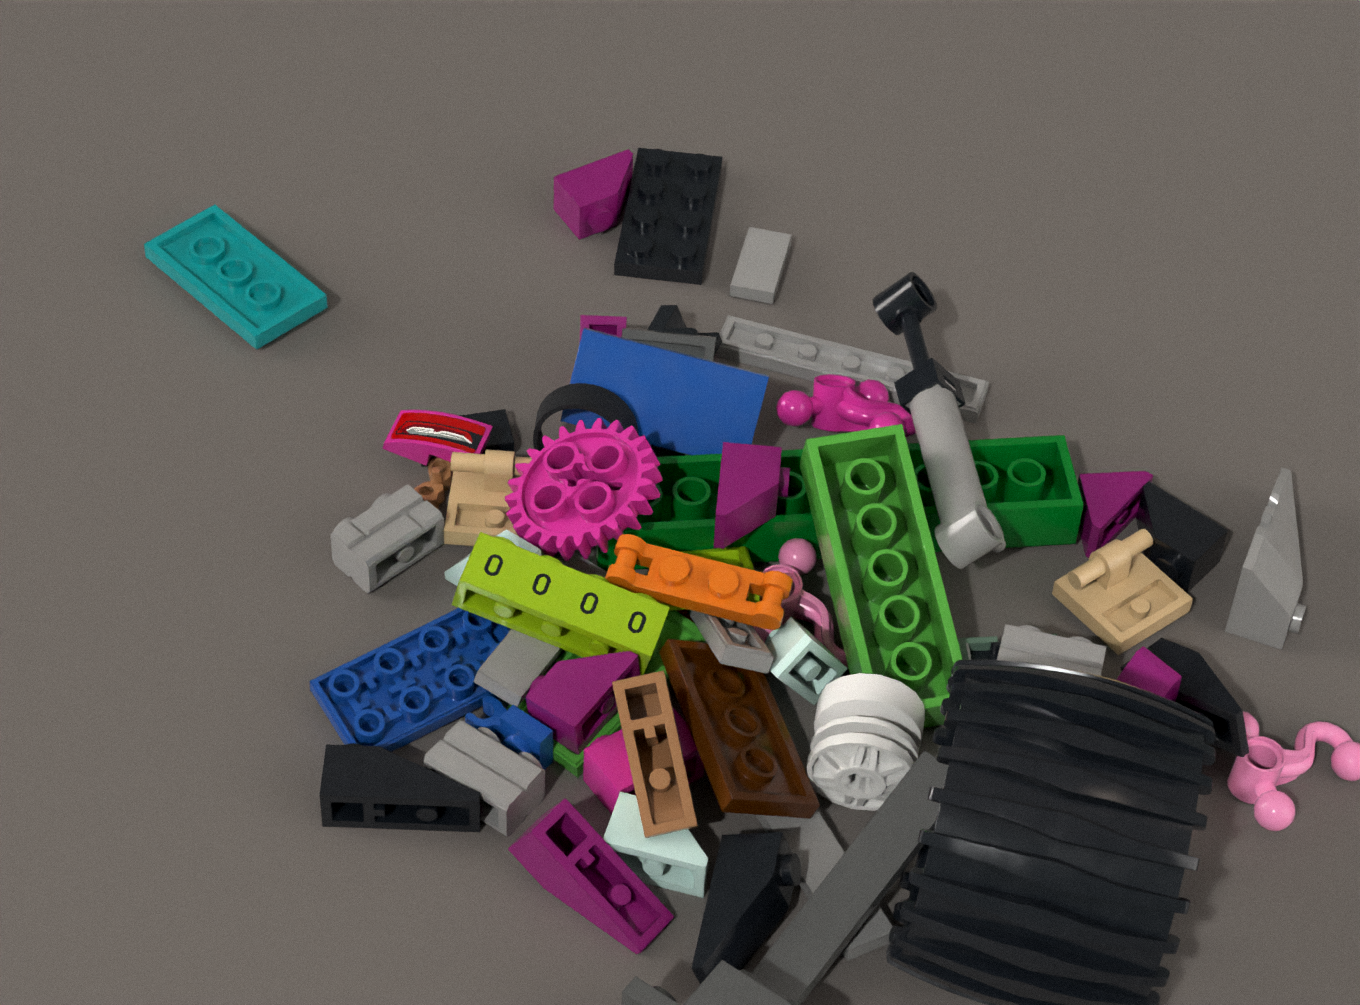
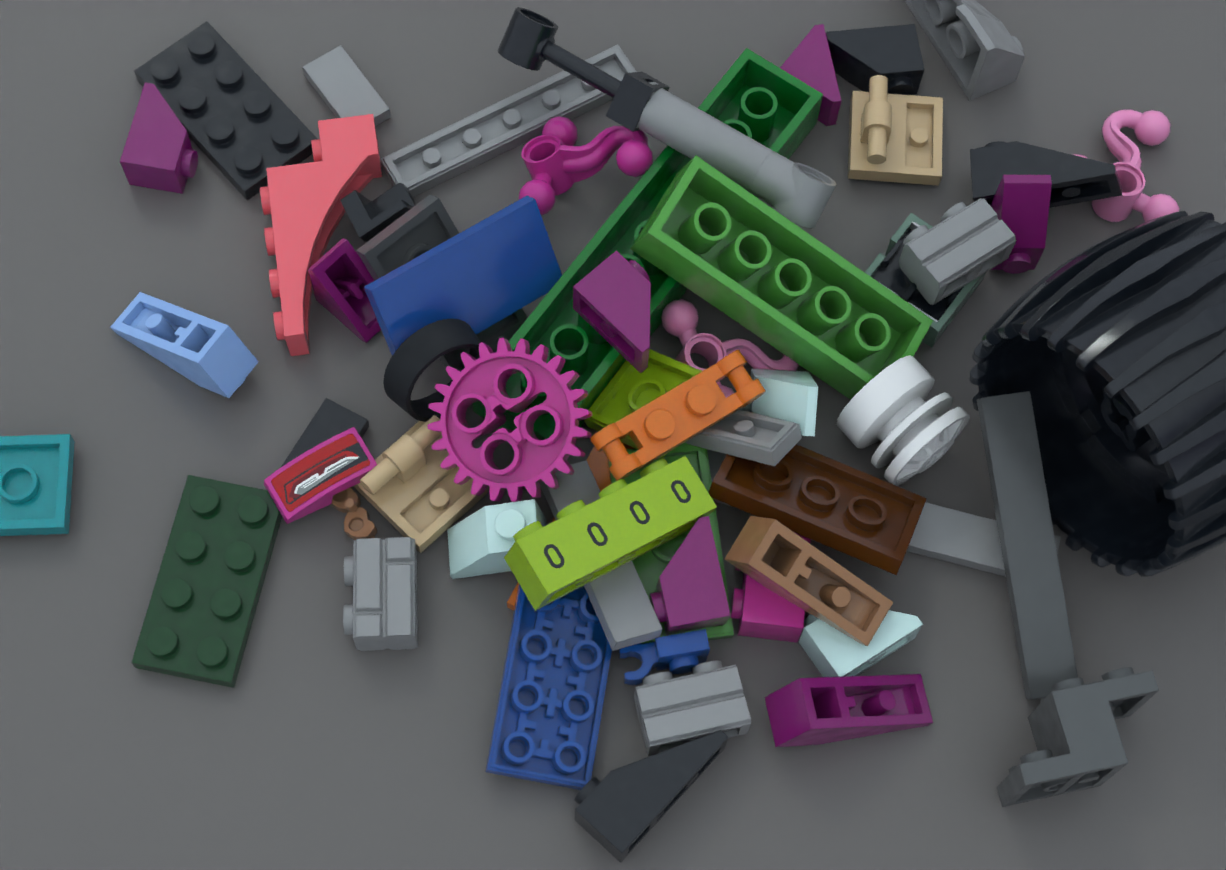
camera: 50 degrees left, 20 degrees up
(297, 445) = (209, 582): none -> dark green plate
(462, 312) = (187, 343): none -> light blue slope
(636, 290) = (307, 211): none -> coral arch
(745, 898) = (961, 614): black slope -> none

